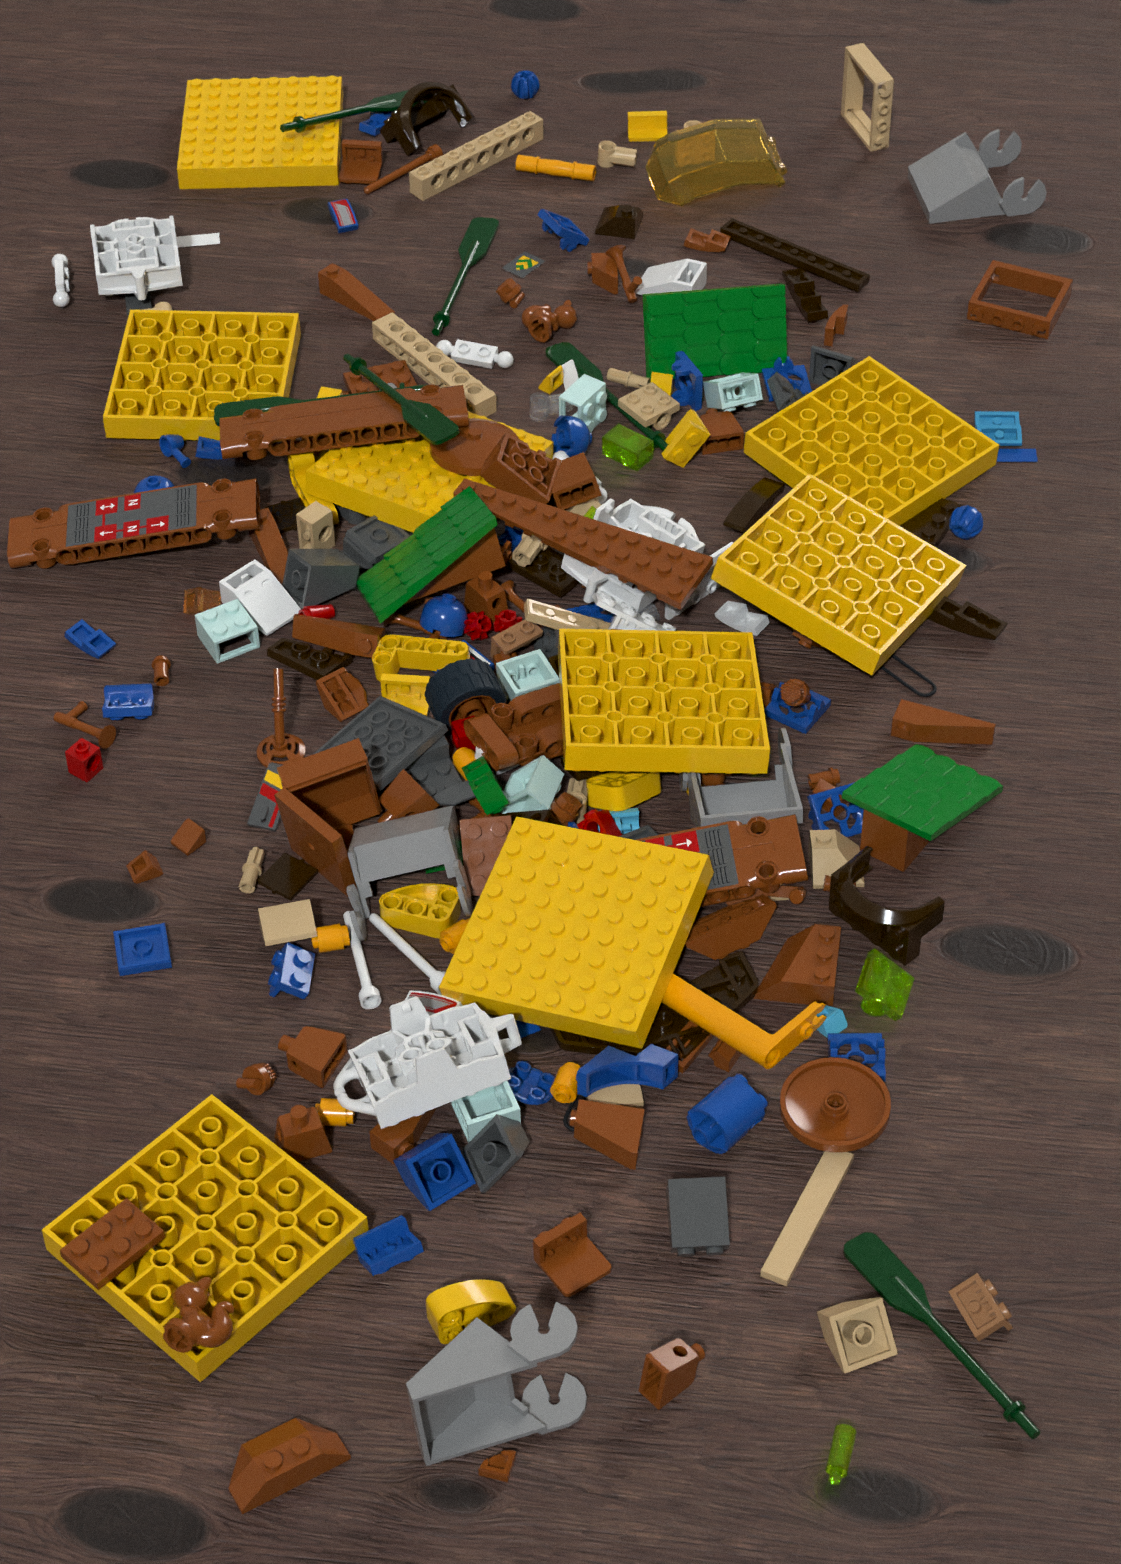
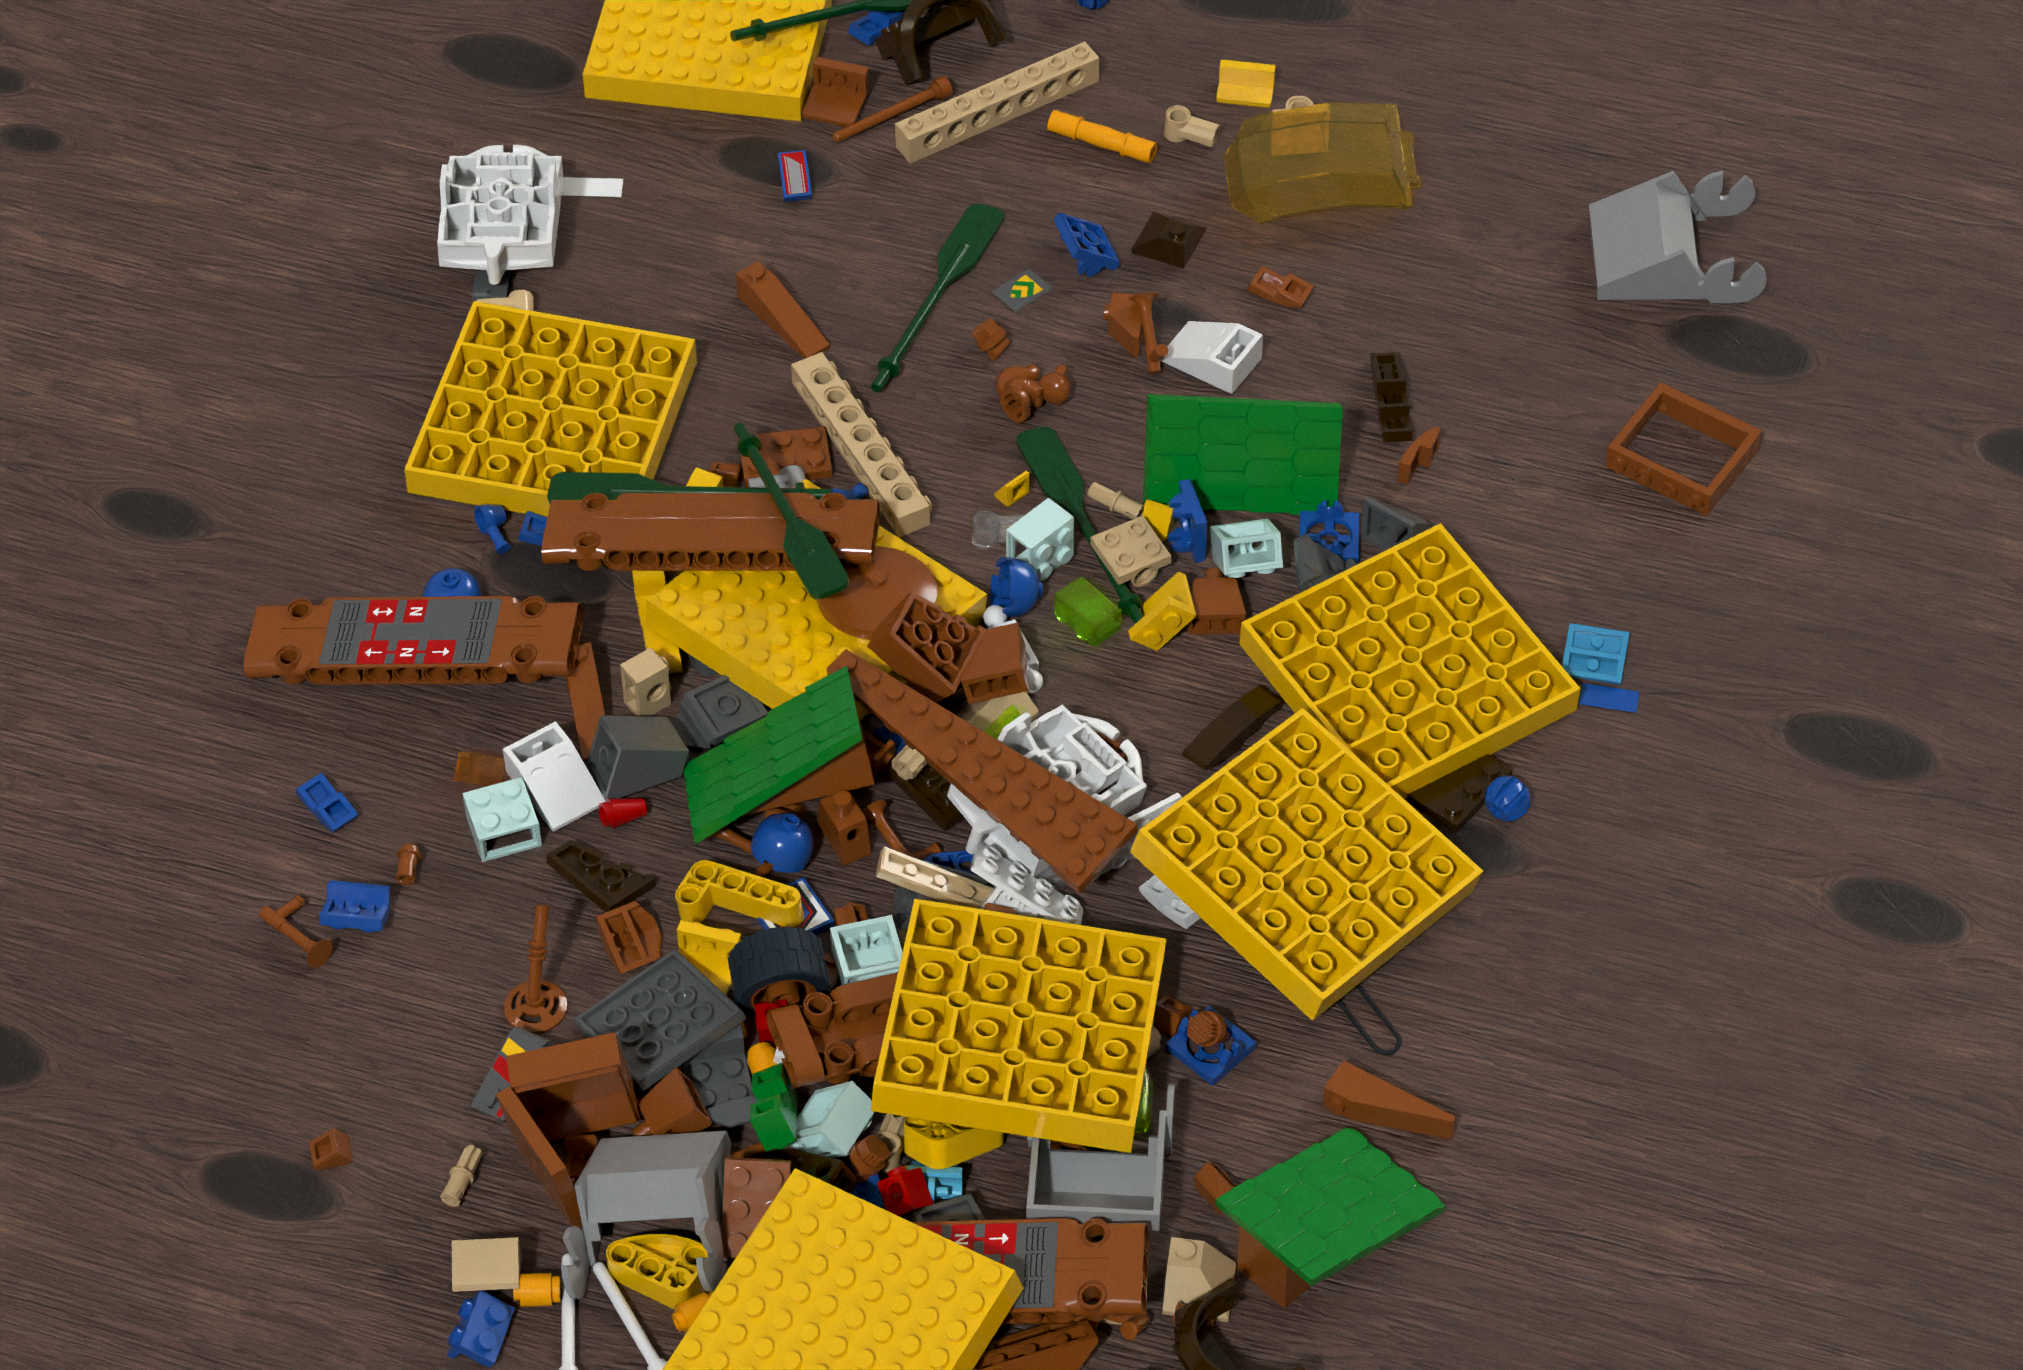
camera: 10 degrees right, 5 degrees up
(60, 264) = (395, 239): white plate -> none
(84, 760) = (283, 984): red brick -> none
(142, 949) = (304, 1266): blue tile -> none
(189, 837) = (393, 1116): dark orange slope -> none
(285, 514) = (617, 647): dark brown piece -> none
(287, 876) = (505, 1190): dark brown piece -> none
(338, 635) = (644, 849): dark orange slope -> none
(476, 354) = (920, 430): white plate -> none
(477, 625) = (824, 860): red gear -> none
(505, 620) = (863, 863): red gear -> none
(515, 637) = (863, 891): medium nougat bracket -> none
(569, 374) = (1038, 484): white sticker -> none
(795, 255) = (1394, 329): dark brown plate -> none
(816, 801) = (1191, 1196): blue piece -> none
(831, 776) = (1222, 1157): dark orange pin -> none
(857, 64) = (1549, 69): tan window -> none
(967, 619) = (1469, 948): dark brown slope -> none

